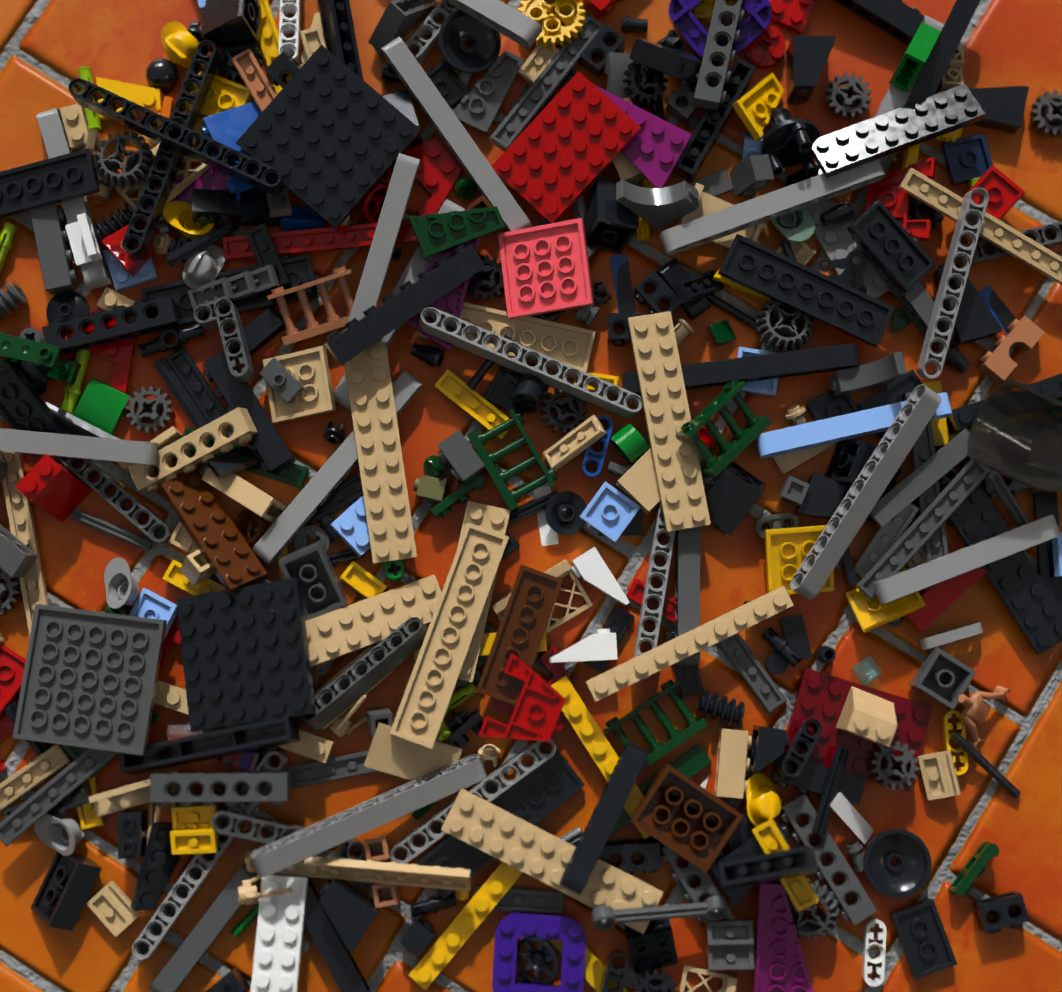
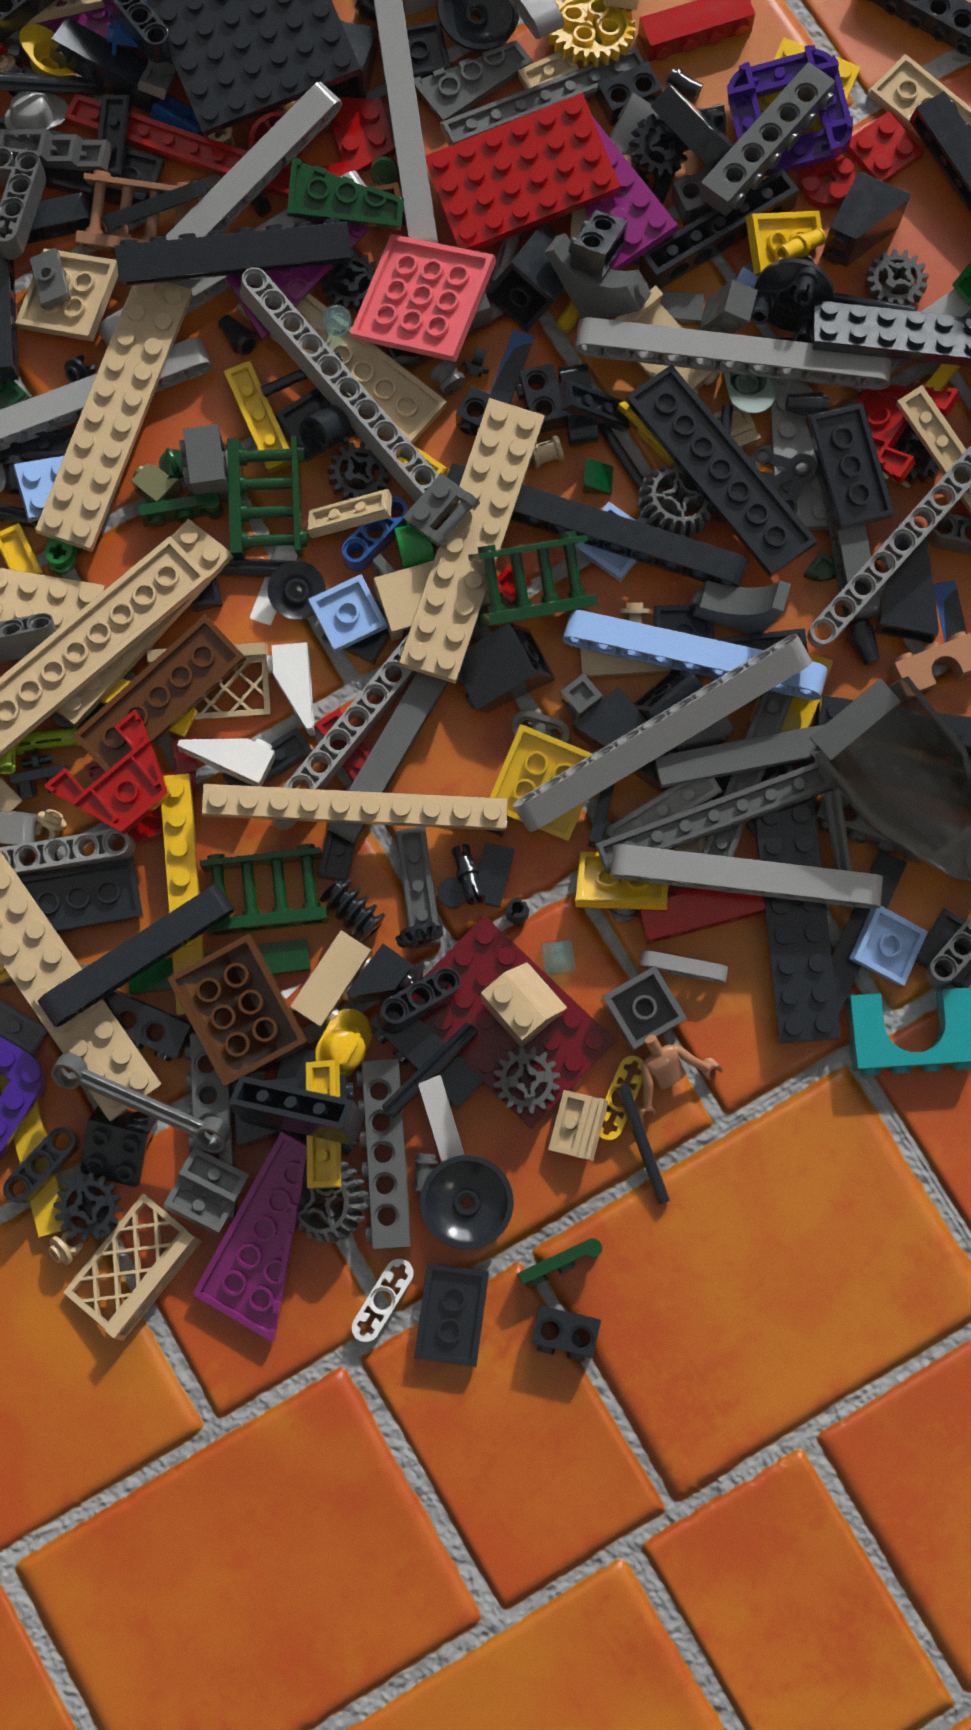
camera: 30 degrees right, 5 degrees down
(329, 295) = (154, 205): none -> black beam
(492, 312) = (336, 320): none -> clear light blue tile
(634, 411) = (435, 505): none -> dark grey plate
(648, 176) = (598, 243): none -> black brick
(775, 705) = (419, 935): none -> black gear
(776, 105) = (801, 244): none -> yellow pin
(844, 121) = (855, 300): none -> black bar
(988, 422) = (855, 719): none -> dark grey tile

